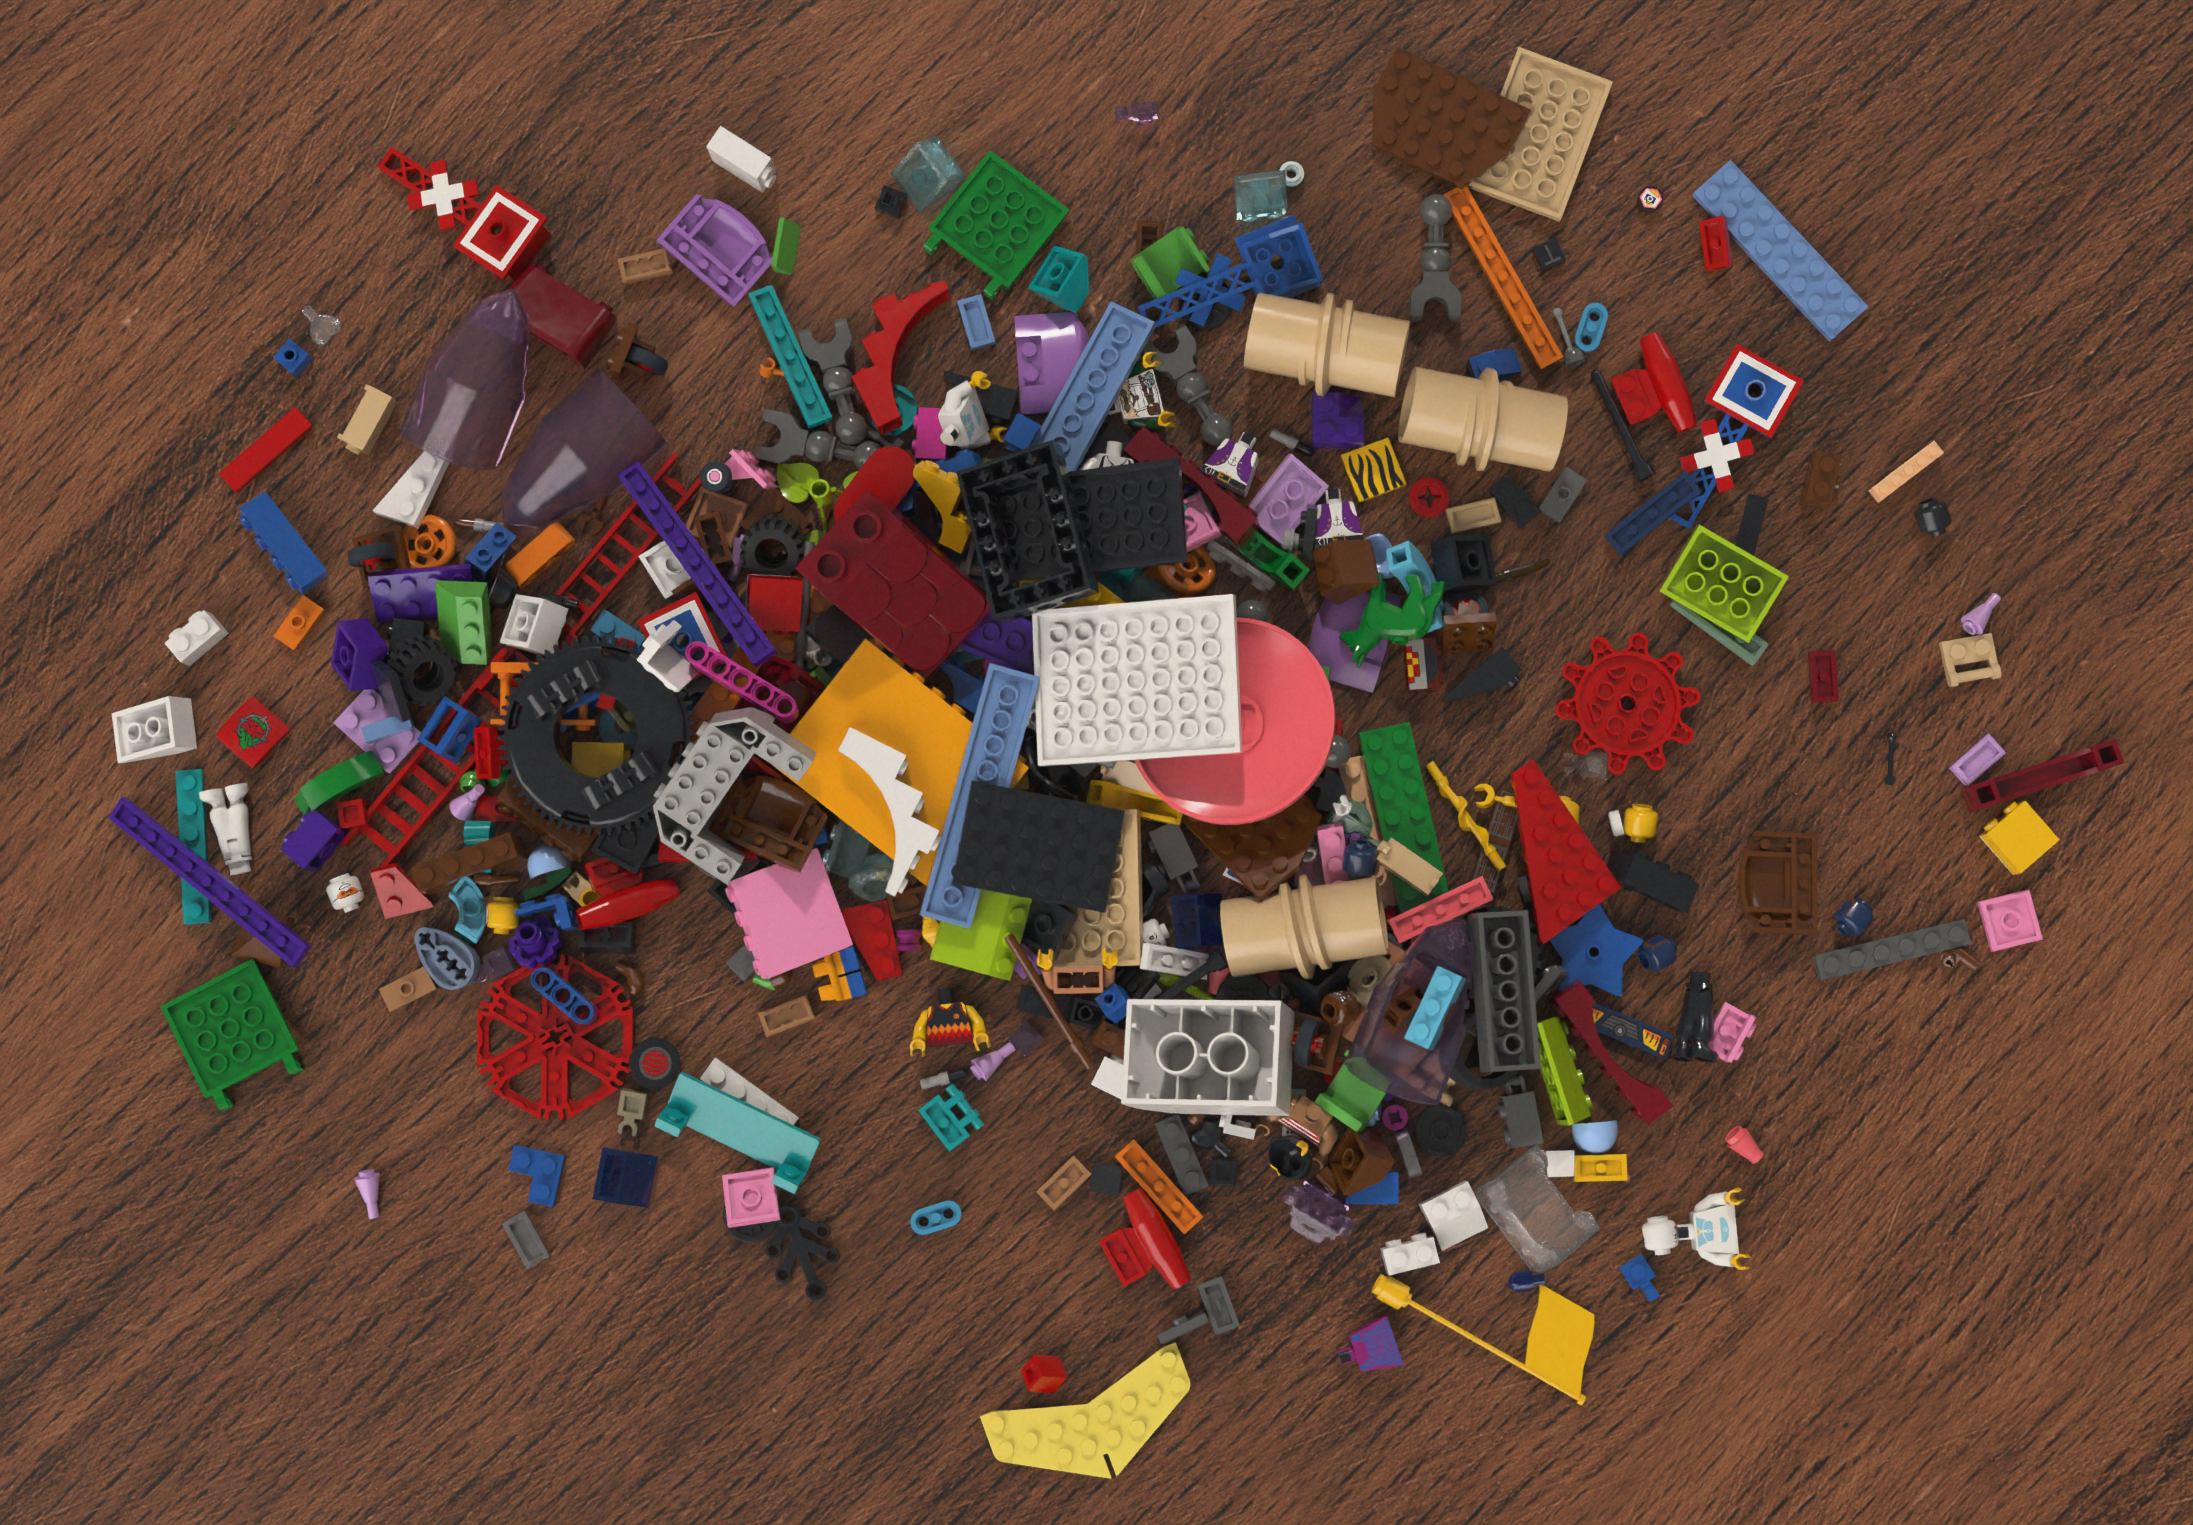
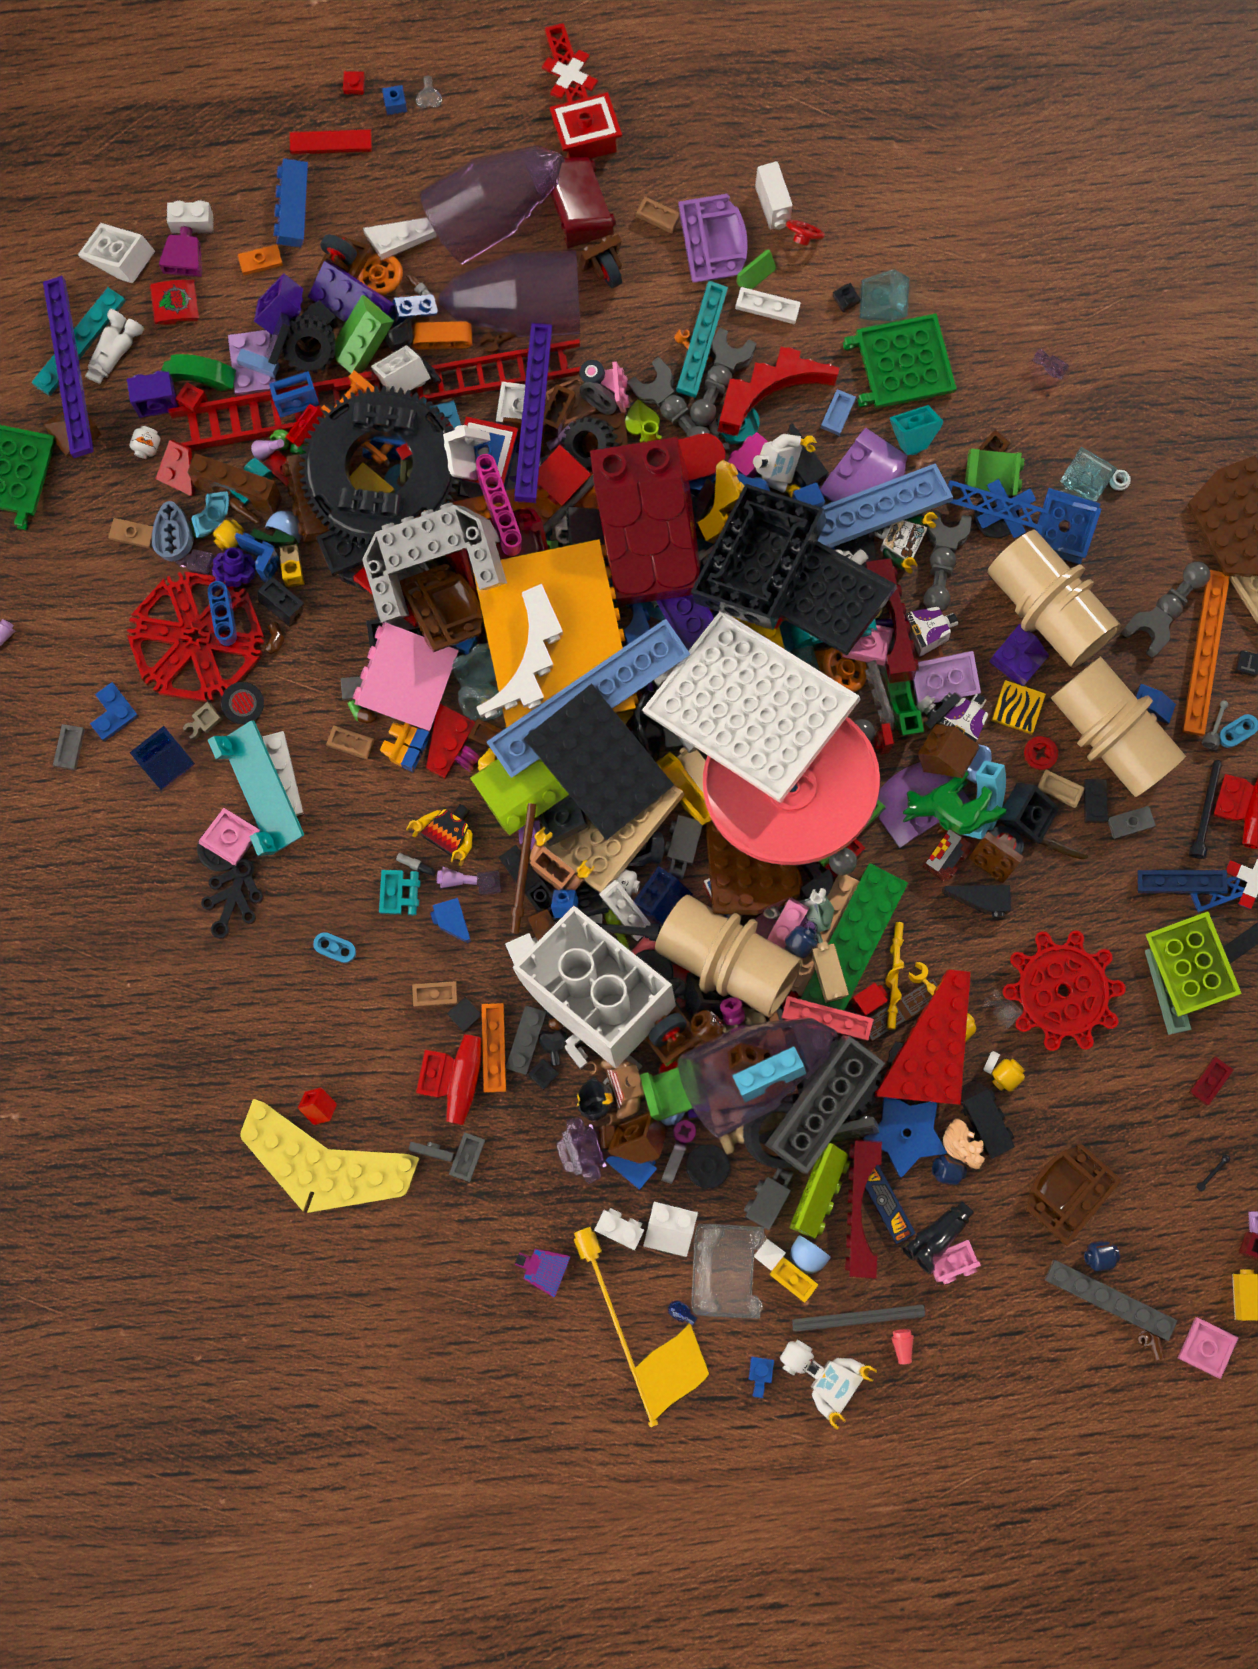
camera: 35 degrees right, 5 degrees down
(220, 680) = (182, 254): none -> magenta torso
(237, 372) = (353, 82): none -> red plate
(368, 421) = (407, 172): tan brick -> none
(621, 895) = (311, 581): red plate -> none
(741, 494) = (598, 397): none -> dark grey plate
(797, 171) = (804, 232): none -> red piece
(824, 271) = (768, 305): none -> white plate
(1020, 1102) = (451, 919): none -> blue slope
(1277, 604) = (884, 739): none -> red plate
(1291, 442) = (979, 647): light grey piece -> none
(1351, 975) = (732, 1011): none -> magenta wheel
(1462, 860) = (869, 1000): none -> red brick
(1649, 926) = (958, 1145): none -> light nougat hair
(1684, 1153) = (856, 1318): none -> dark grey axle

